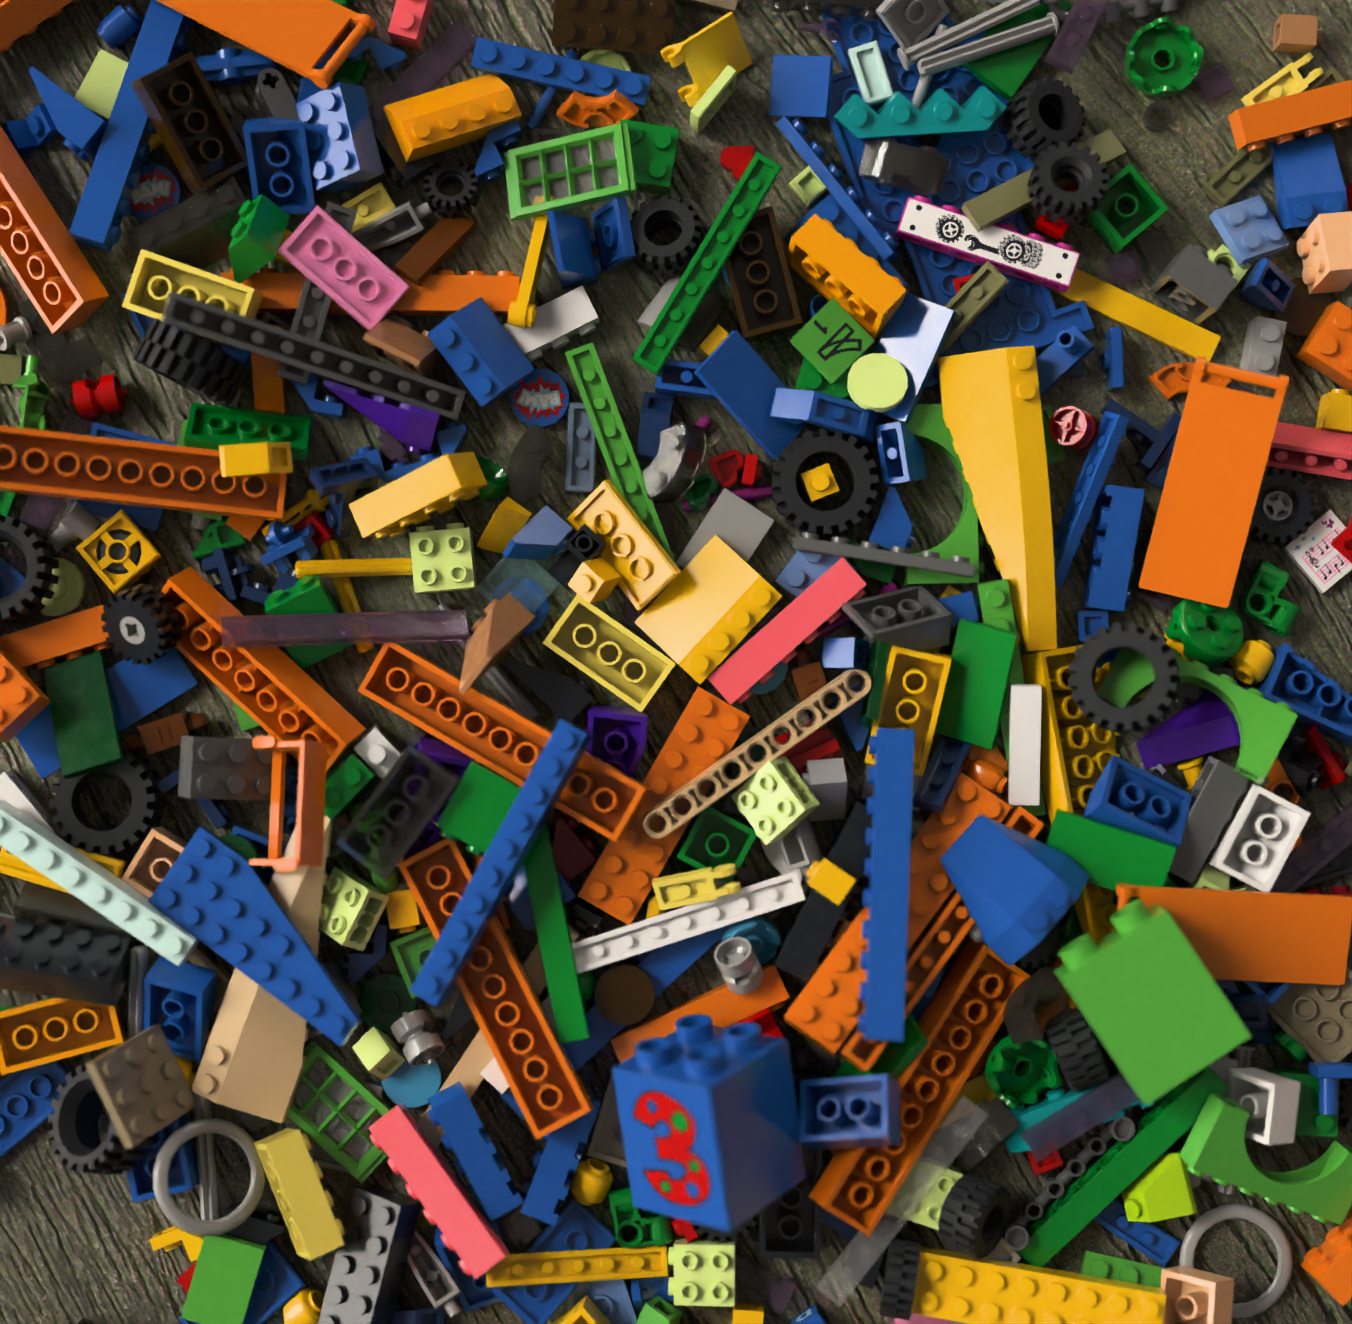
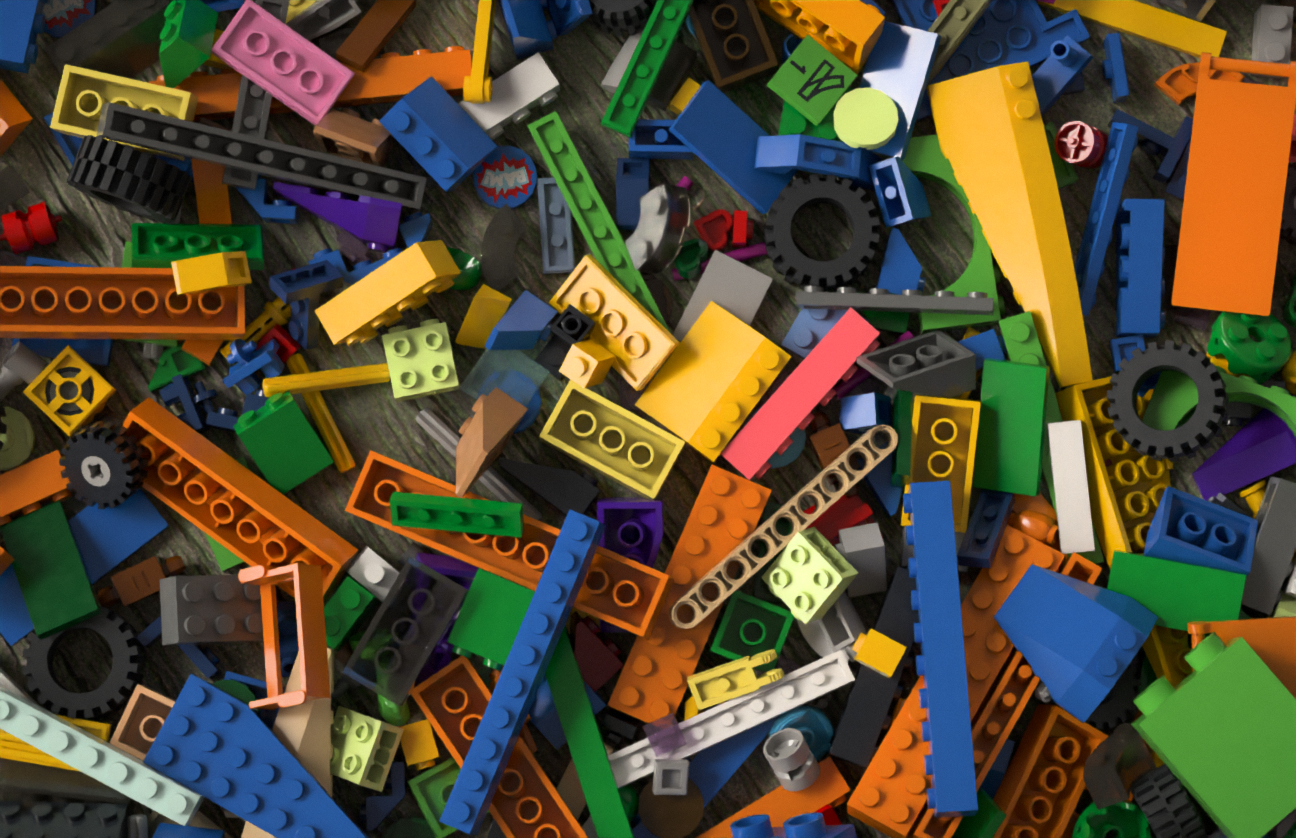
camera: 10 degrees left, 5 degrees down
(344, 628) = (324, 443): tile -> none
(458, 708) = (457, 514): none -> green plate
(625, 931) = (664, 735): none -> clear purple plate
(627, 969) = (670, 777): none -> light grey tile
(818, 483) = (816, 234): yellow brick -> none

